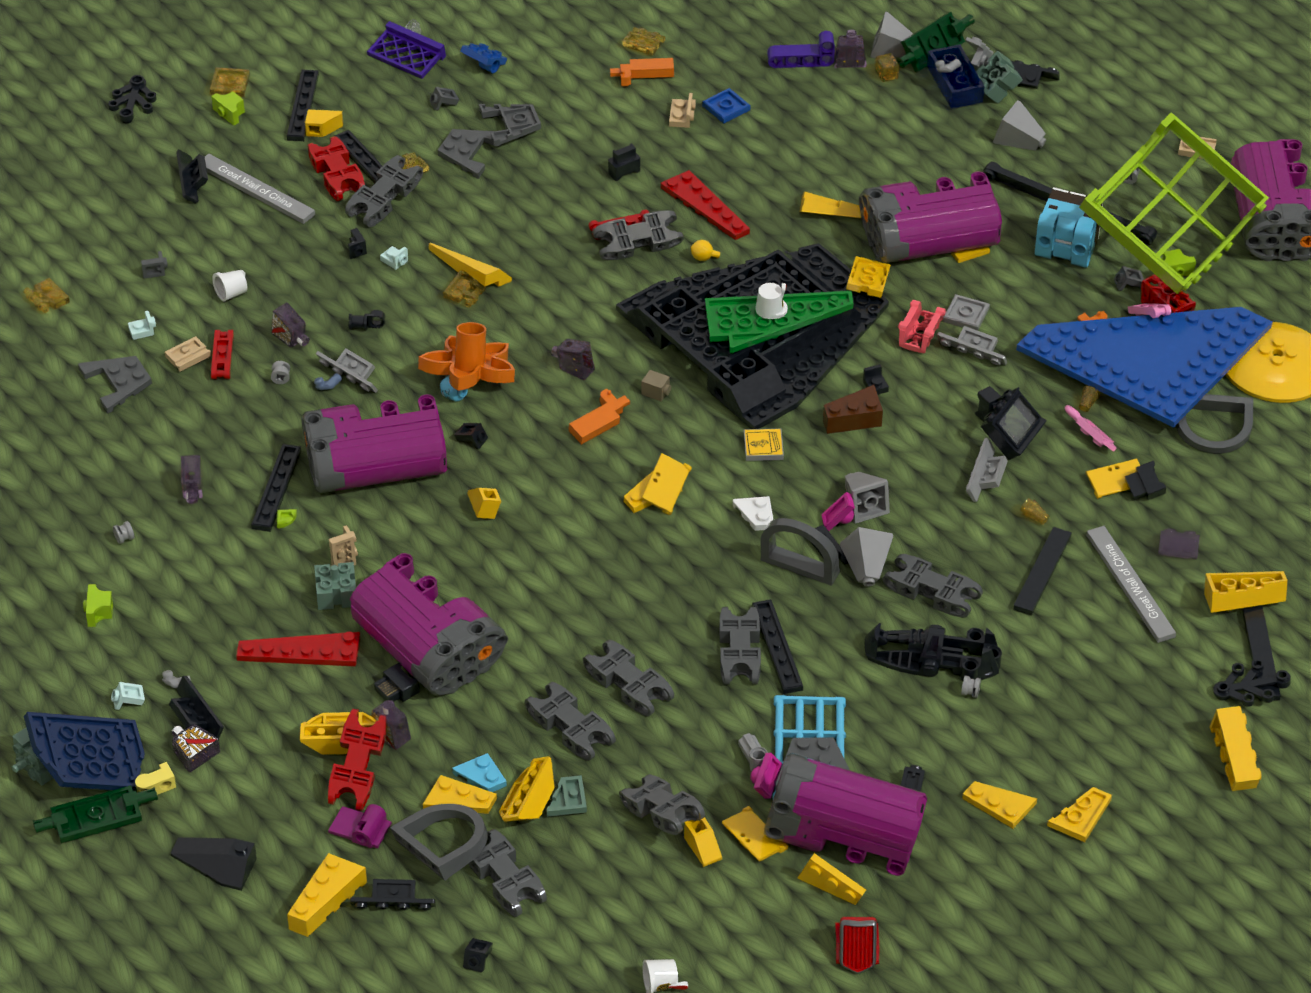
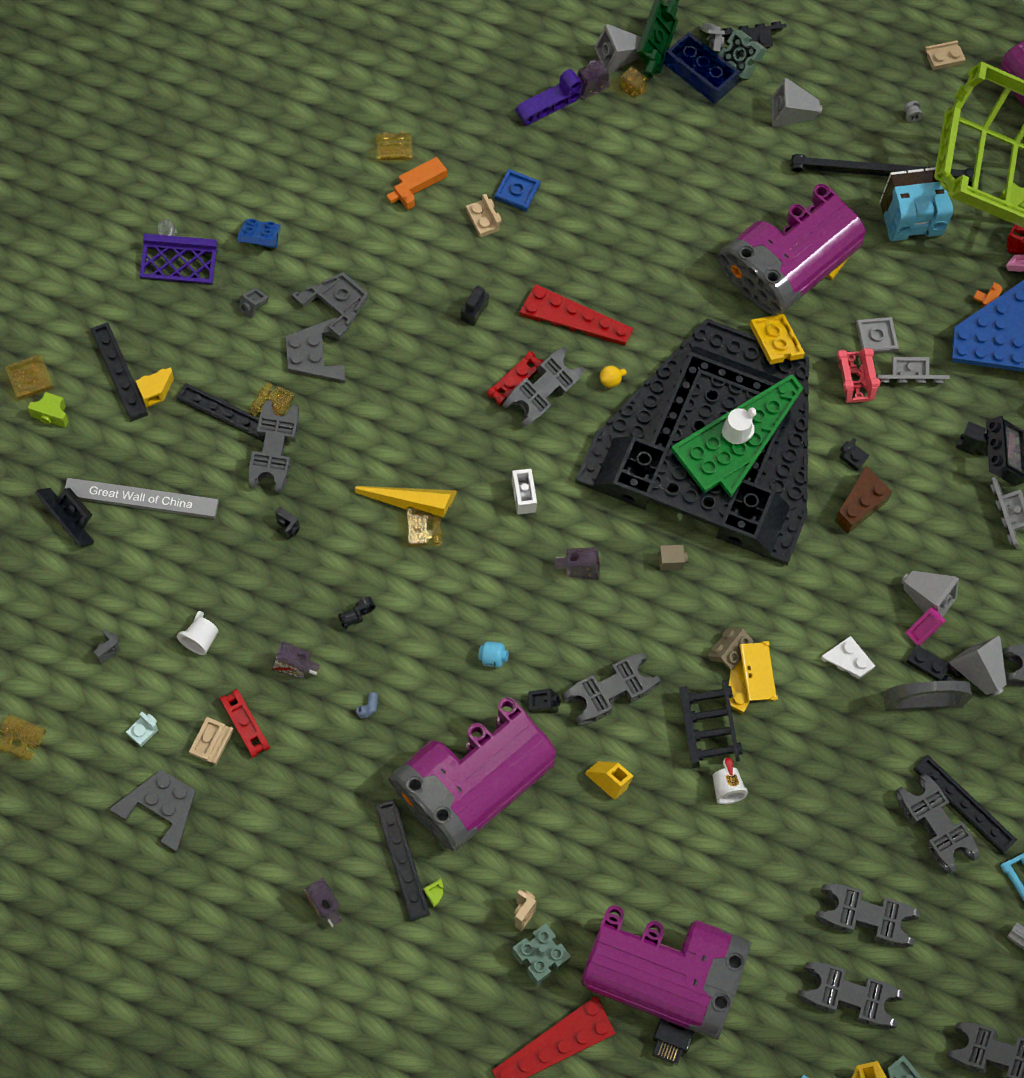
camera: 35 degrees left, 20 degrees up
(123, 532) = (297, 997): light grey wheel -> none
(280, 372) = (317, 718): light grey wheel -> none
(334, 161) = (195, 429): red piece -> none
(352, 366) = (381, 676): light grey bracket -> none
(394, 257) = (332, 520): light aqua bracket -> none
(469, 358) = (494, 620): orange plant -> none
(533, 448) = (623, 682): none -> dark grey piece
(564, 294) = (524, 491): none -> white brick
(579, 544) = (728, 784): none -> white hat
(584, 490) = (694, 735): none -> black fence
(600, 419) = (647, 621): orange piece -> none
(648, 461) = (728, 648): none -> dark tan bracket
(763, 444) = (805, 576): yellow tile -> none
(821, 205) = (684, 270): yellow wedge -> none
(942, 67) = (697, 66): light grey arm -> none
(1128, 276) = (985, 232): dark grey bracket -> none

